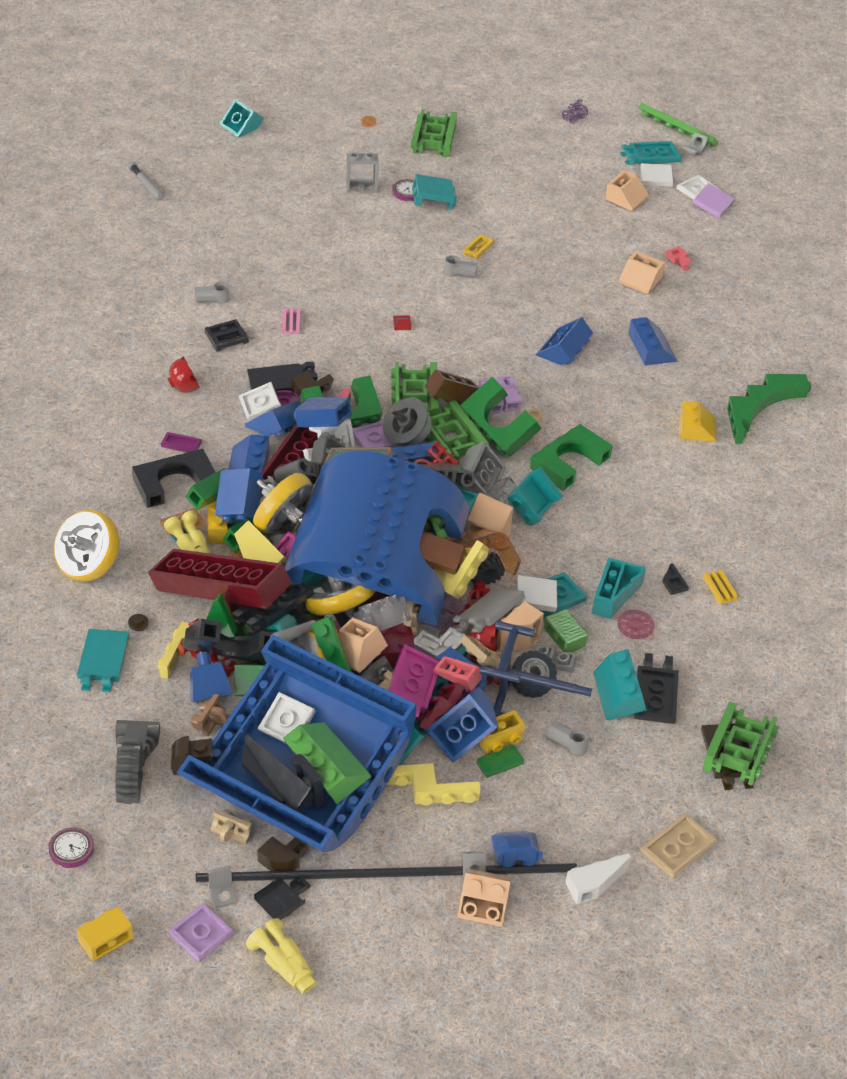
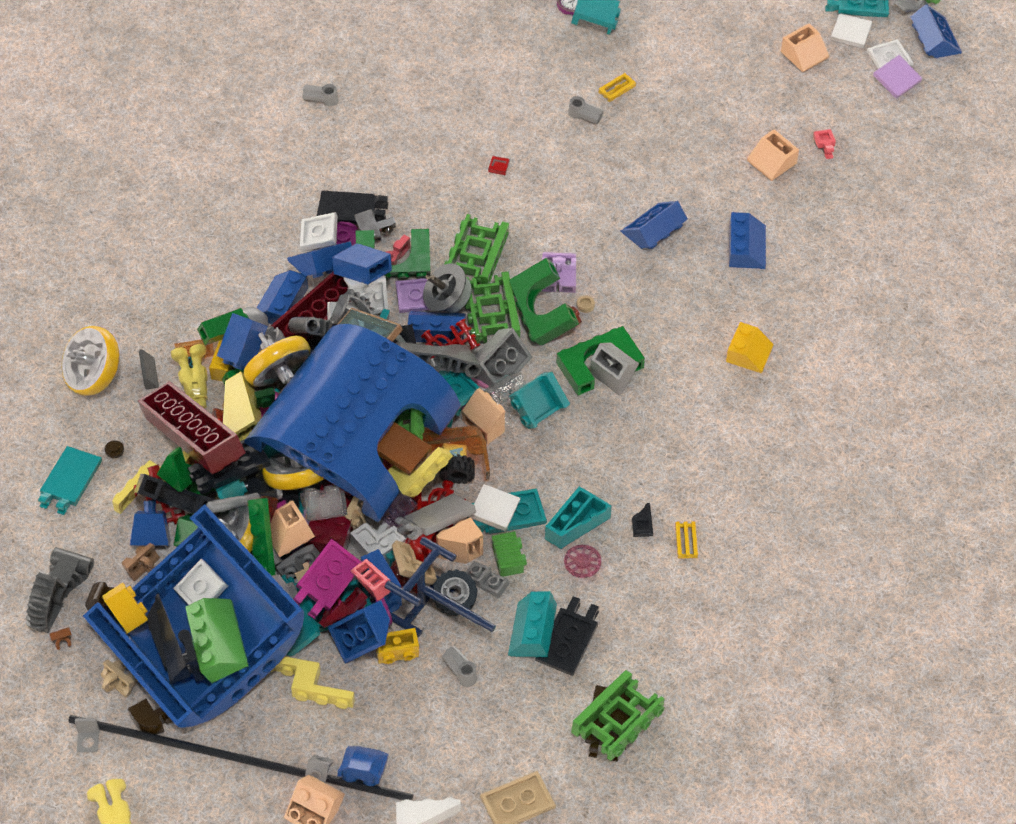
camera: 20 degrees right, 10 degrees up
(143, 548) = (148, 370): none -> dark grey slope
(148, 475) = (182, 292): black arch -> none
(154, 800) = (61, 635): none -> dark orange tile
(180, 442) = (227, 261): magenta tile -> none
(182, 376) = (252, 185): red cylinder -> none
(201, 932) = (54, 772): lavender tile -> none
(220, 751) = (125, 607): none -> yellow brick
(224, 331) = (316, 141): black plate -> none
(280, 899) = (135, 758): black piece -> none
(284, 536) = (264, 398): none -> dark green plate
(291, 312) = (392, 130): bright pink tile -> none
(450, 387) = (506, 257): reddish brown brick -> none
(500, 761) = (388, 673): green tile -> none
(588, 458) = (612, 367): none -> light grey slope
(726, 164) = (935, 33): none -> slope
(774, 389) = (854, 325): green arch -> none

